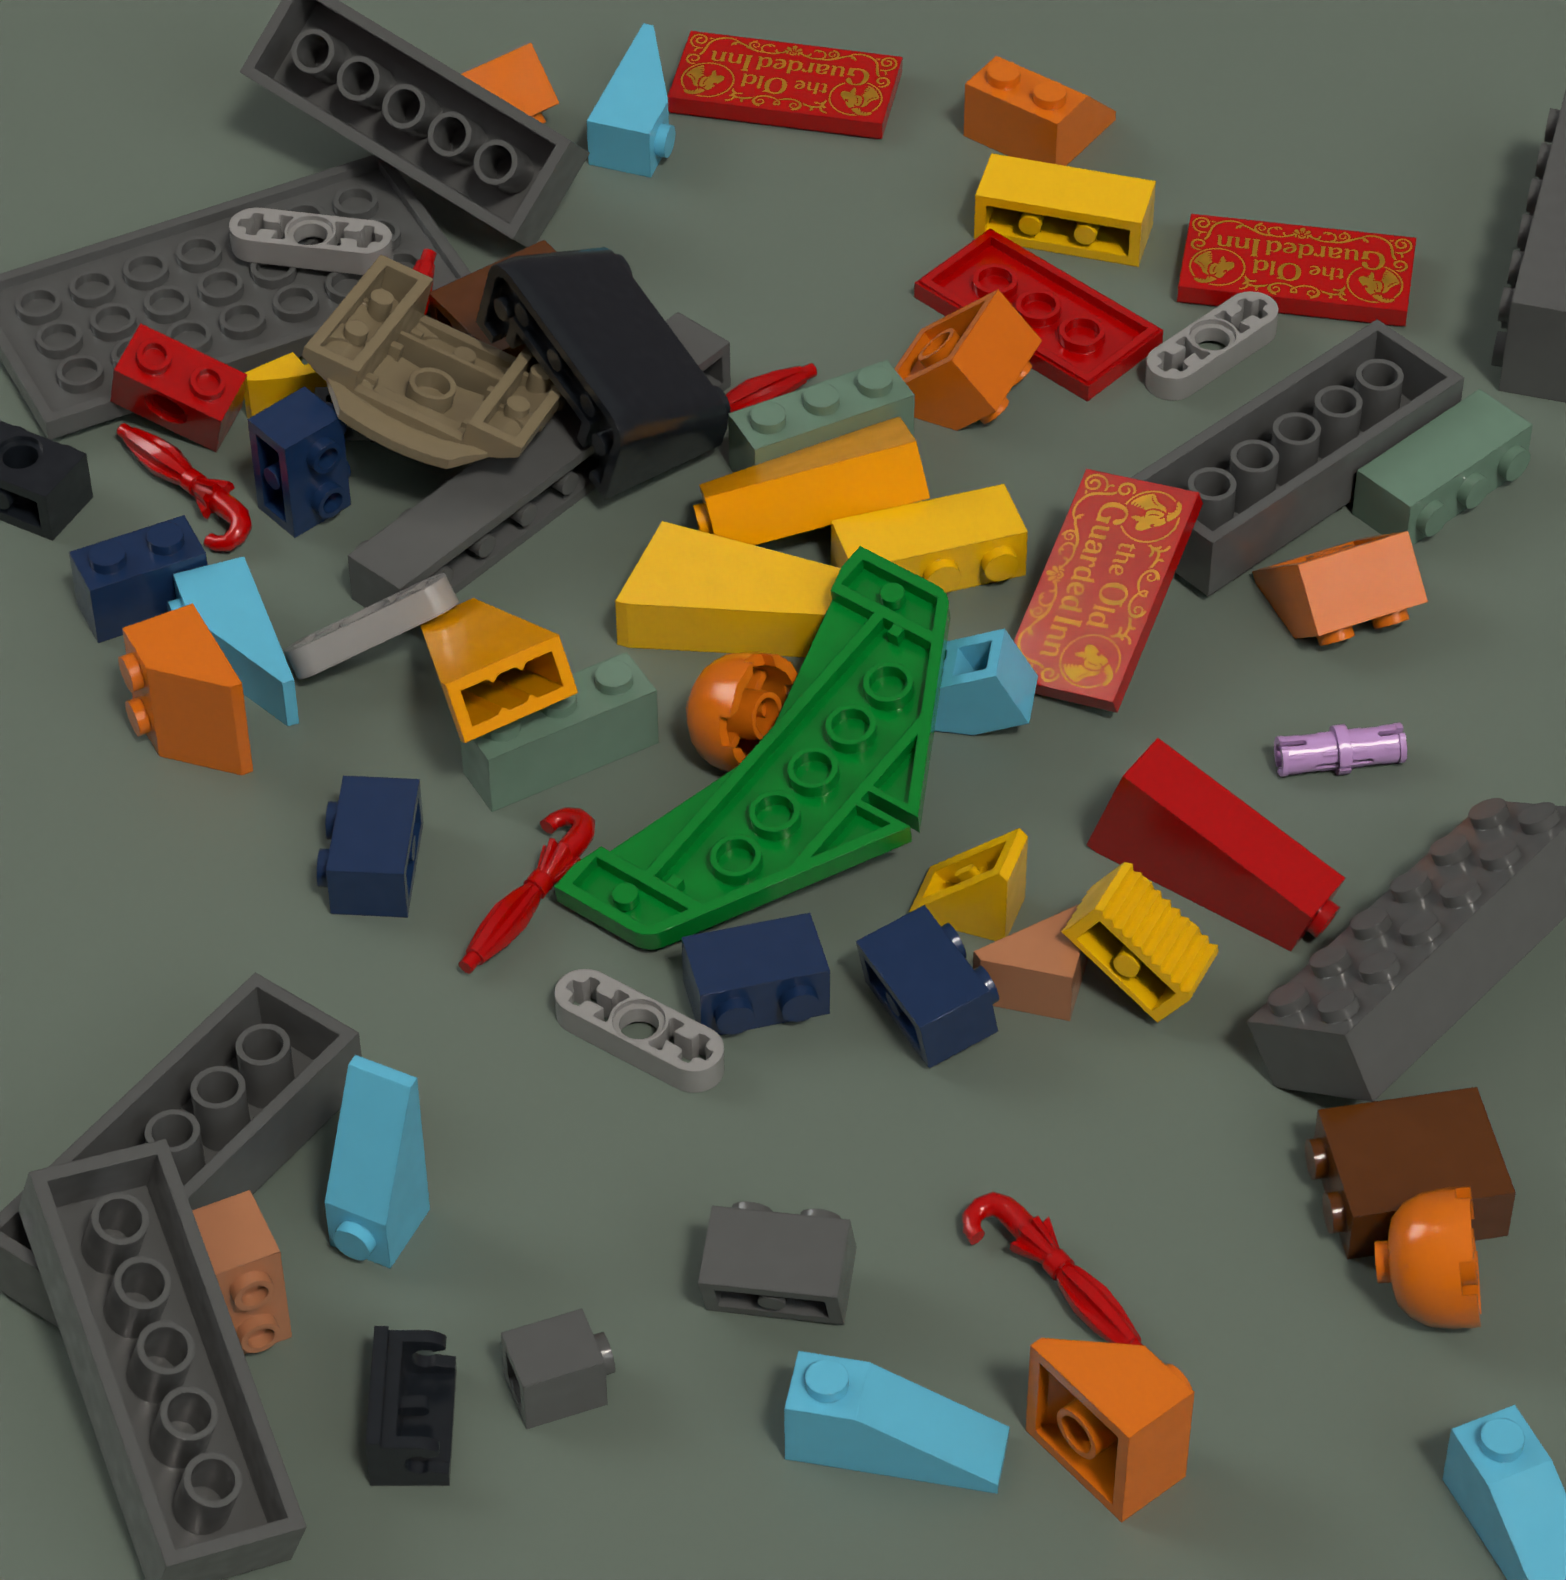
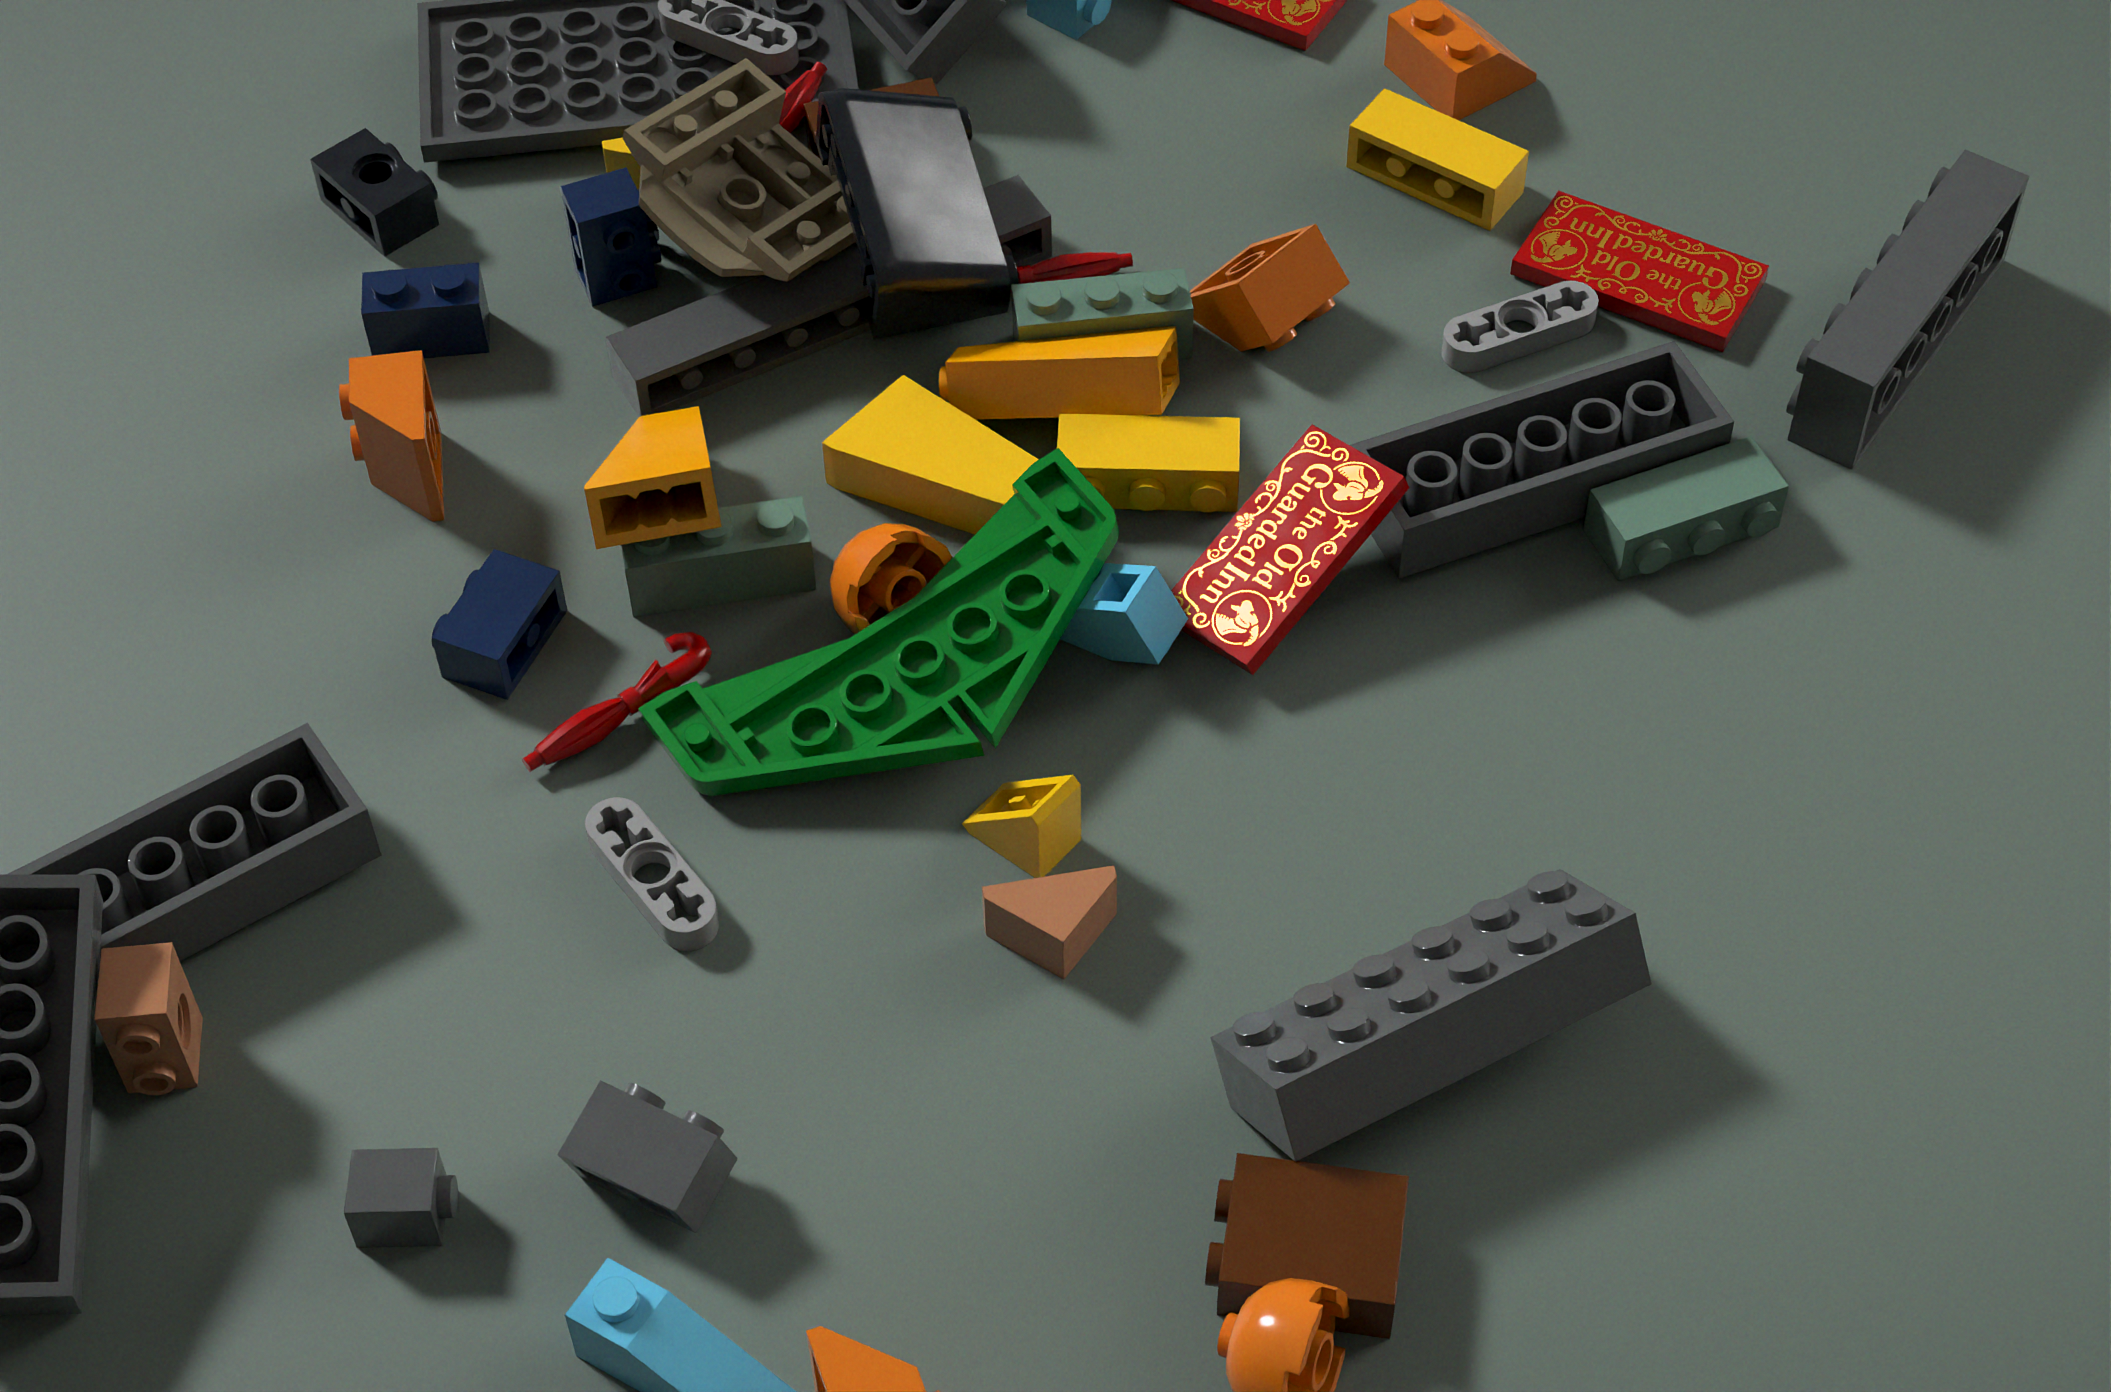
camera: 20 degrees right, 5 degrees up
(178, 387) = (538, 138): red brick -> none
(210, 494) = (532, 248): red piece -> none
(240, 624) = (482, 380): medium azure slope -> none
(371, 626) = (597, 410): light grey beam -> none
(377, 1165) = (317, 951): medium azure slope -> none
(410, 1409) = (249, 1196): black hinge -> none
(756, 974) = (778, 850): dark blue brick -> none
(929, 985) = (929, 909): dark blue brick -> none
(1037, 1241) = (934, 1274): red piece -> none
(1082, 332) = (1394, 273): red tile -> none
(1141, 941) = (1147, 922): yellow brick -> none
(1215, 849) = (1271, 846): red slope -> none
(1340, 749) = (1453, 772): lavender pin -> none
(1344, 587) = (1531, 606): orange slope -> none

